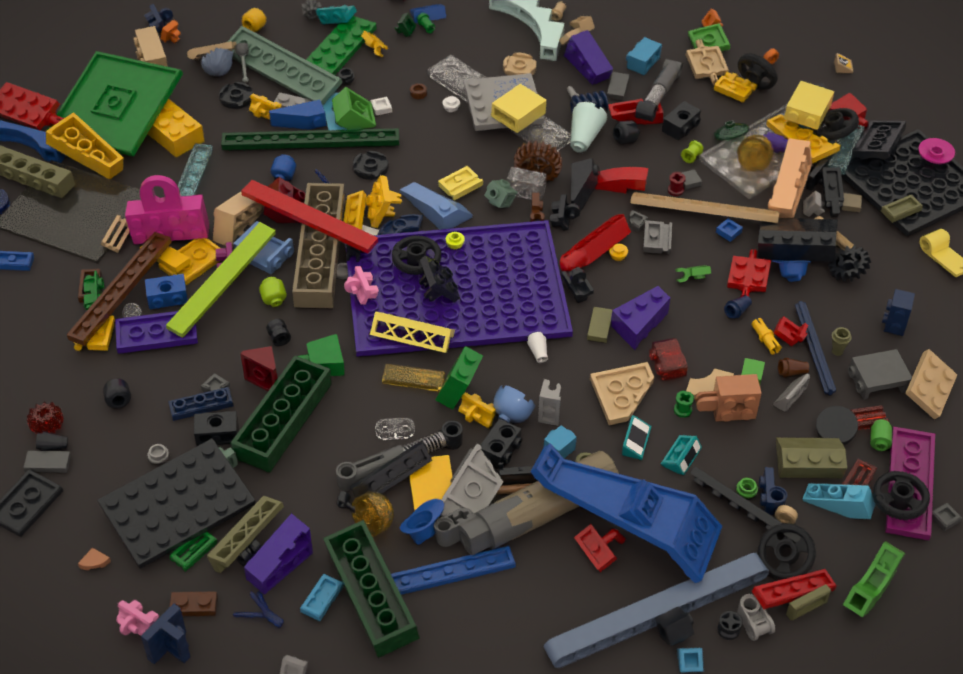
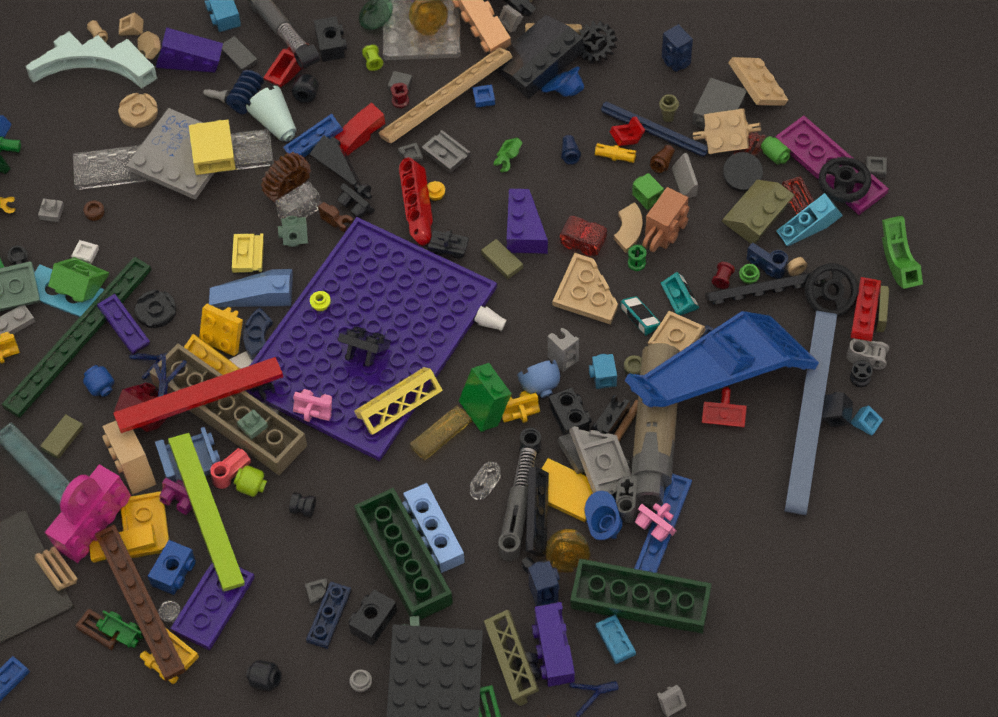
camera: 50 degrees left, 10 degrees up
(225, 178) = (61, 436): none -> olive tile
(259, 367) = (344, 540): dark red slope -> none
(265, 269) = (229, 467): none -> coral piece
(300, 116) = (41, 324): blue slope -> none
(301, 195) = (162, 375): none -> clear blue plant
(311, 258) = (252, 424): none -> sand green tile
(323, 420) = (423, 498): none -> light blue brick
(326, 353) = (362, 483): green torso -> none
(326, 514) = (543, 583): none -> dark blue brick
(340, 154) = (123, 324): none -> dark purple tile
(397, 70) = (51, 210): none -> light grey tile
(415, 251) = (314, 348): black wheel -> none
(451, 104) = (137, 195): white plate -> none
(453, 555) = (663, 528): none -> bright pink hips
(603, 160) = (307, 141): none -> blue tile
(640, 467) = (677, 331): none -> tan plate
(726, 470) = (723, 274): none -> dark red bush
(749, 273) = (541, 117): red plate -> none
(859, 389) = (726, 131): none -> tan plate

